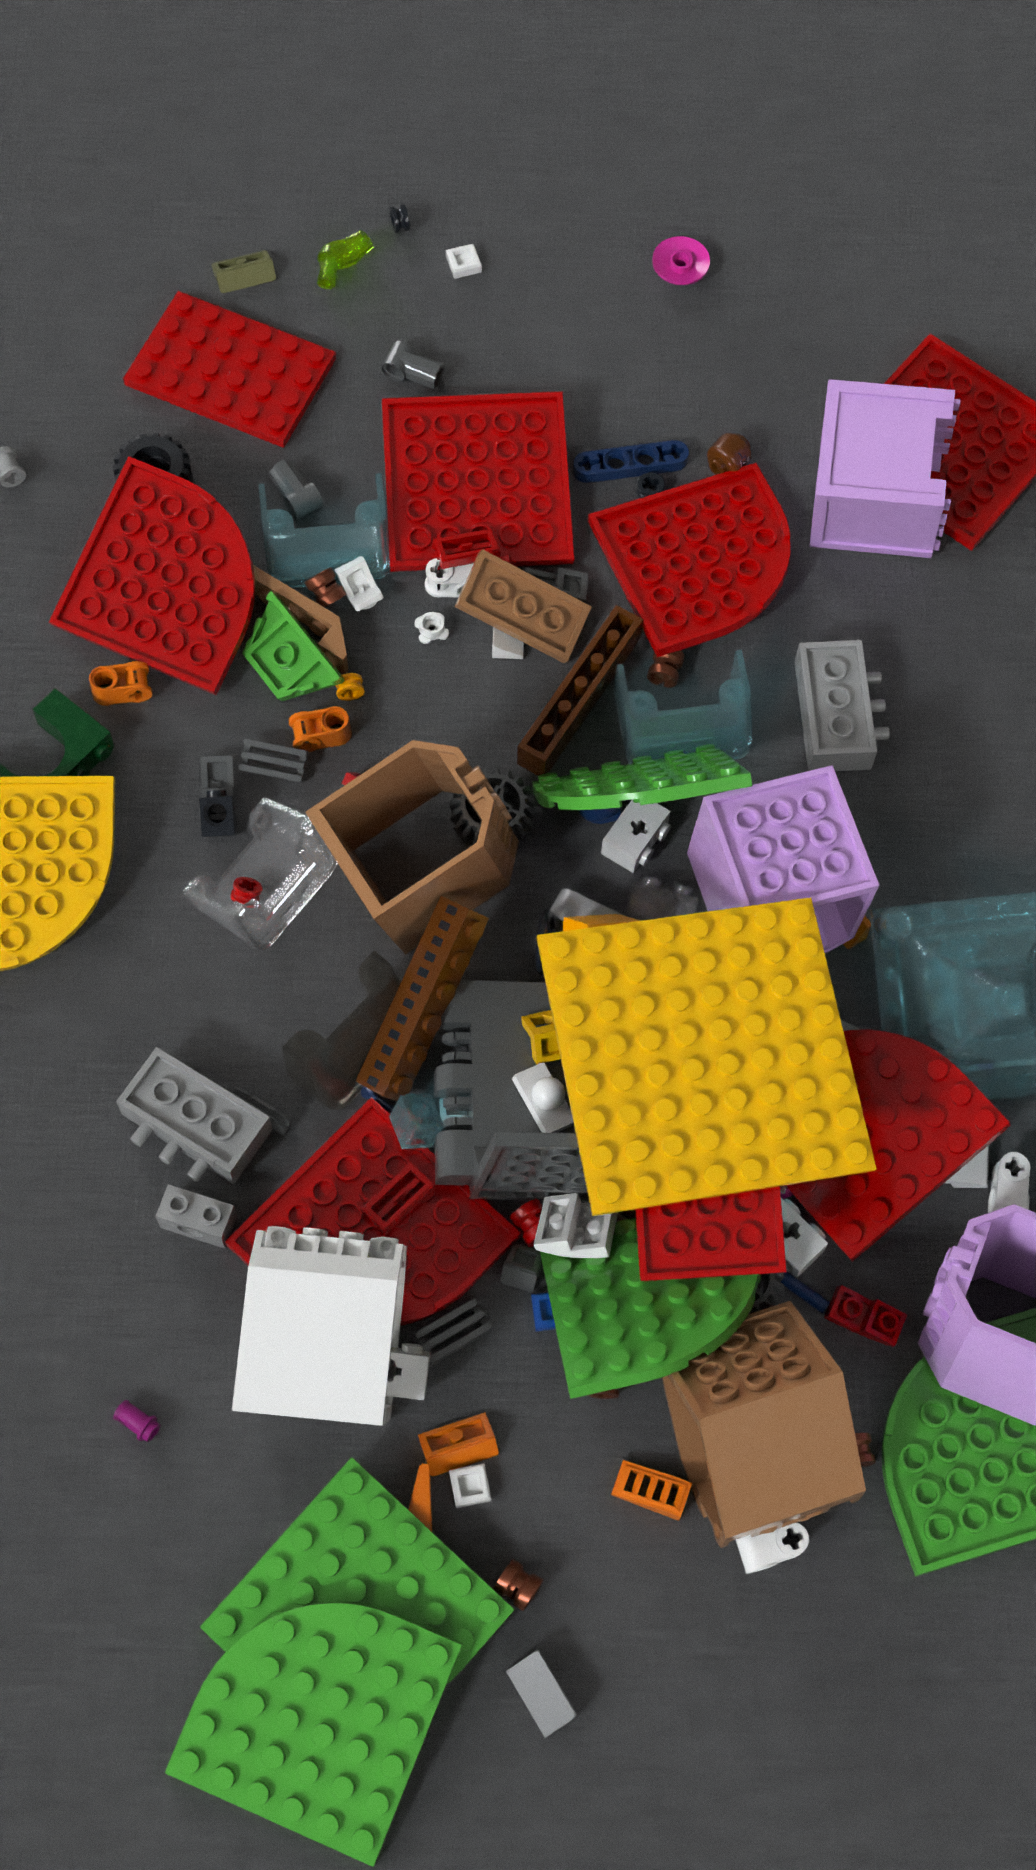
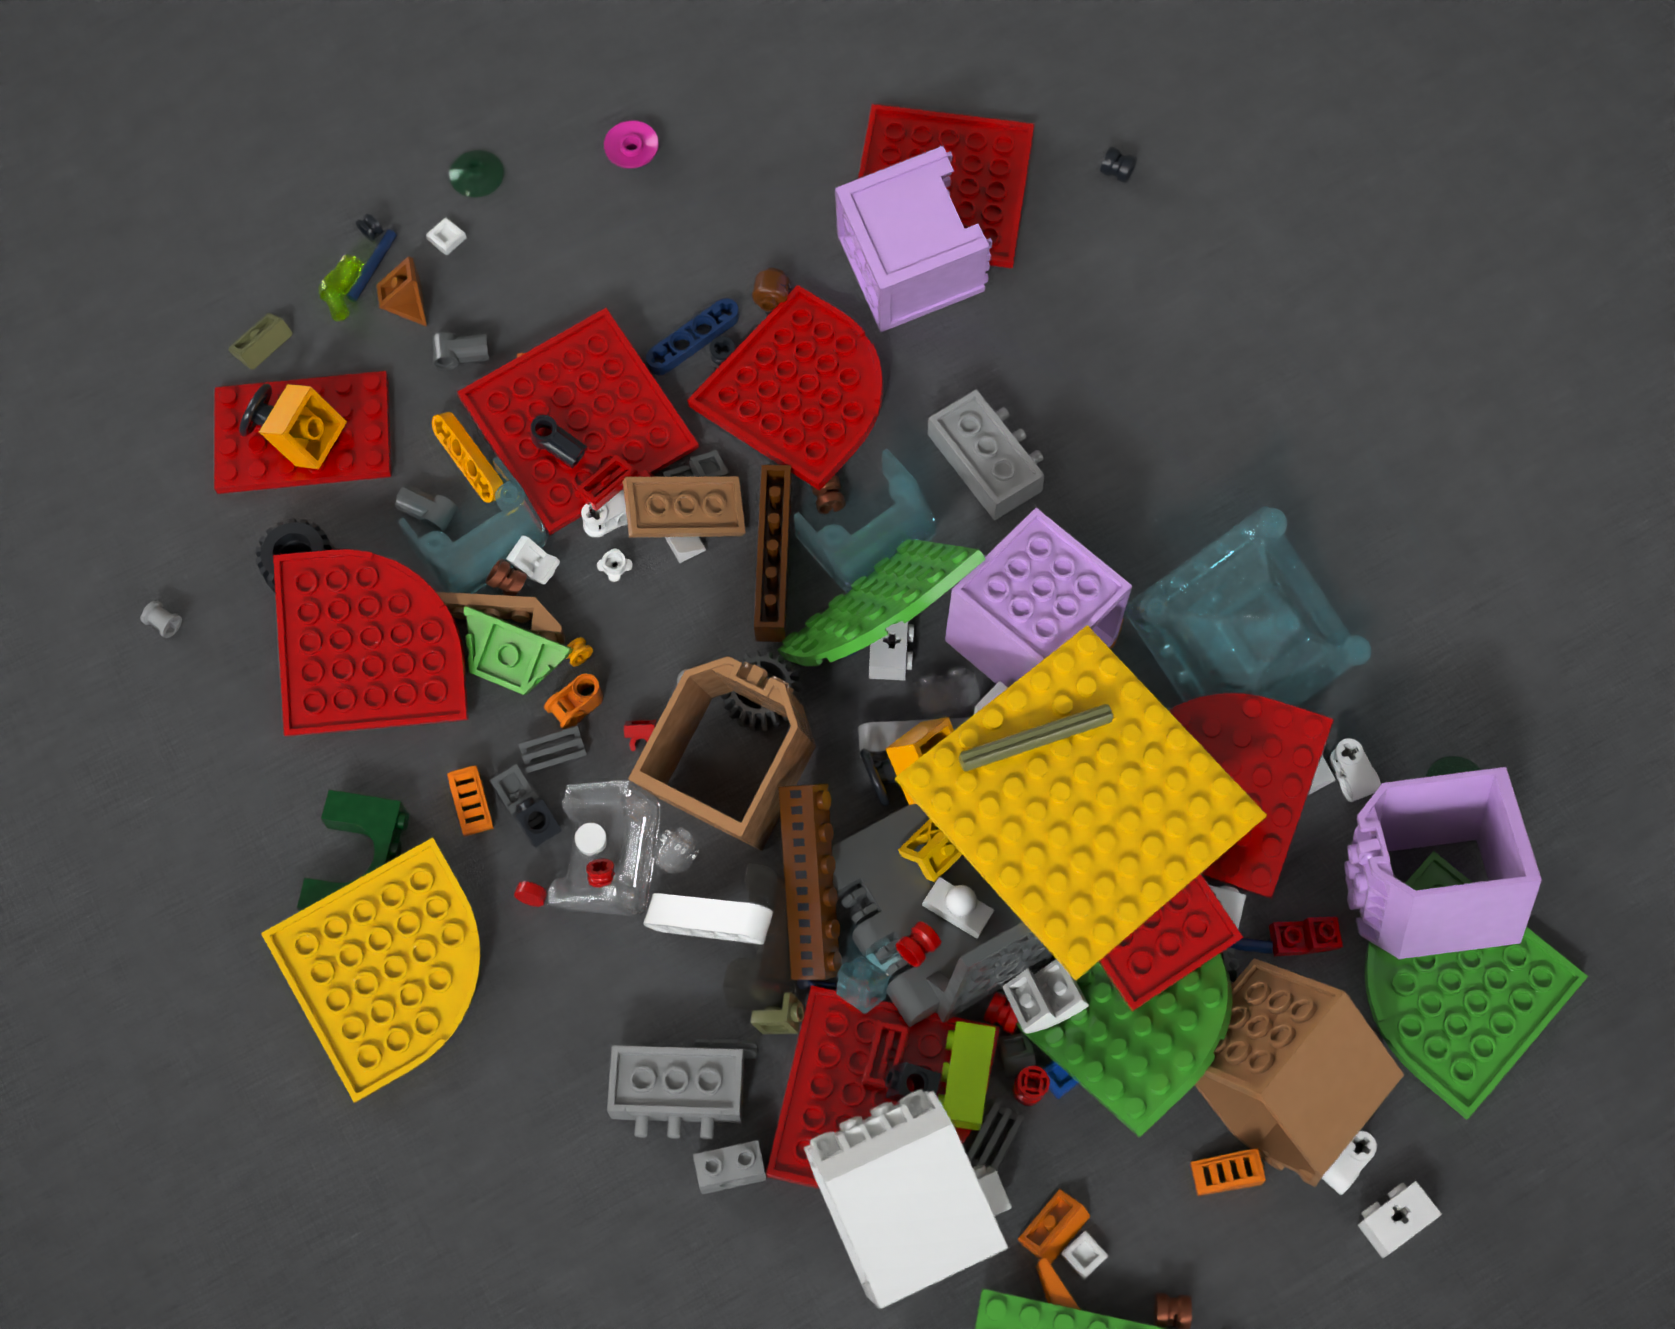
camera: 25 degrees left, 0 degrees up
(122, 683) = (385, 749): orange piece -> none
(174, 876) = (530, 893): none -> red tile
(180, 747) = (465, 776): none -> orange slope
(220, 352) = (297, 425): none -> light orange piece
(257, 858) = (590, 839): none -> white tile
(311, 982) = (708, 918): none -> white beam
(325, 909) = (675, 850): none -> clear head
(325, 1112) = (777, 1020): none -> olive bracket
(359, 459) = (466, 455): none -> light orange beam
(381, 253) = (371, 265): none -> dark blue bar
(394, 291) = (402, 292): none -> dark orange slope
(417, 1239) = (921, 1077): none -> black brick
(443, 488) = (559, 442): none -> black piece
(459, 1257) = (967, 1074): none -> lime brick
(487, 1109) = (918, 944): none -> red wheel
(511, 1307) = (1028, 1091): none -> red wheel
(526, 219) = (480, 181): none -> clear green dish
(692, 971) = (1035, 737): none -> olive axle
(808, 1637) = (1417, 1213): none -> white brick

